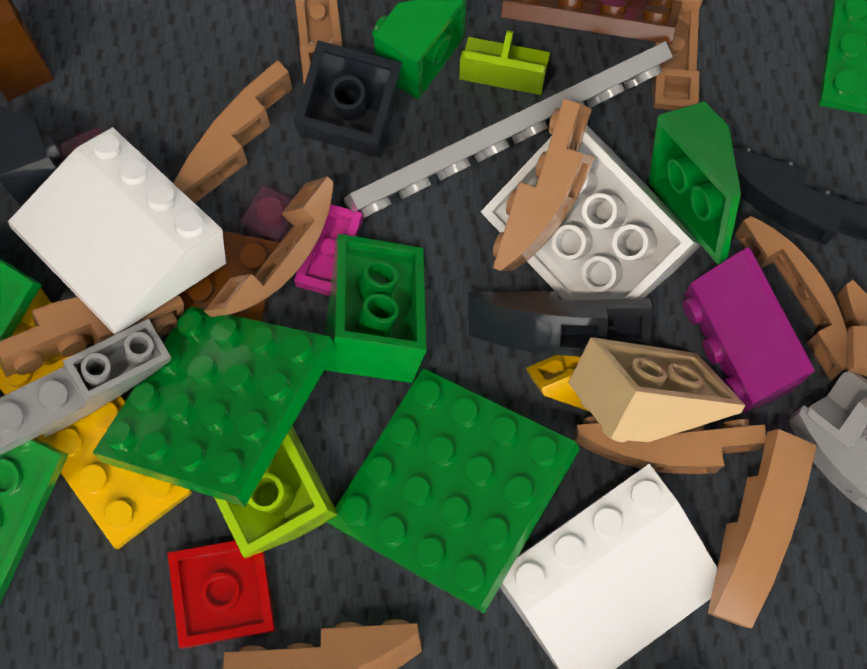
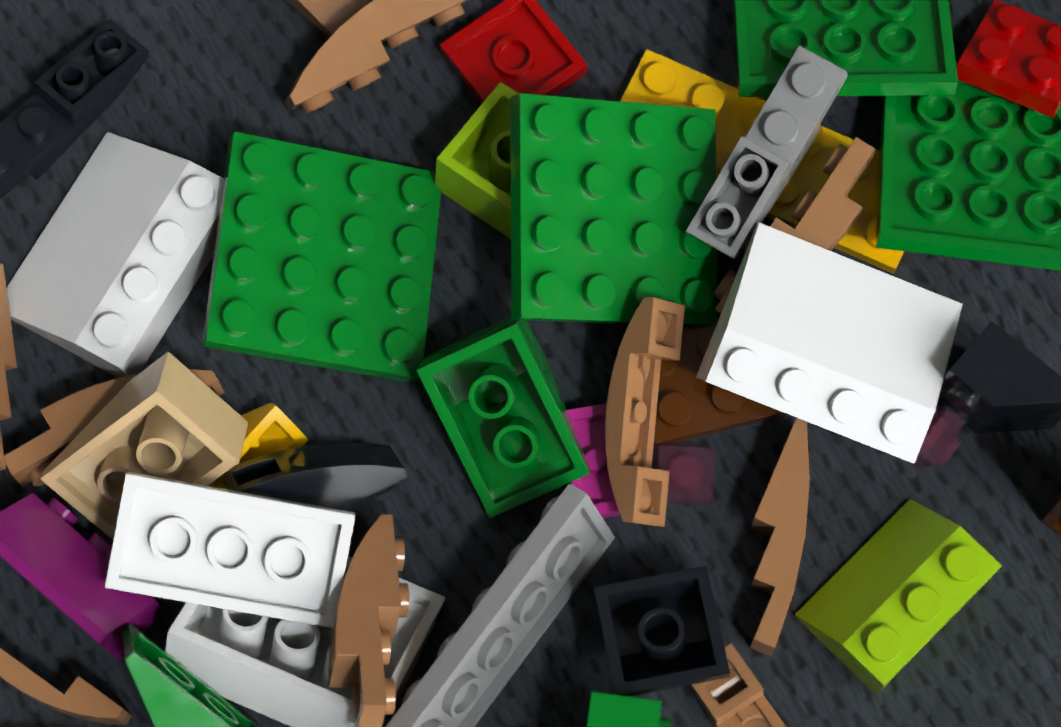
camera: 155 degrees right, 0 degrees up
(174, 66) = (897, 593): none -> lime slope
(625, 278) = (230, 549): none -> white plate

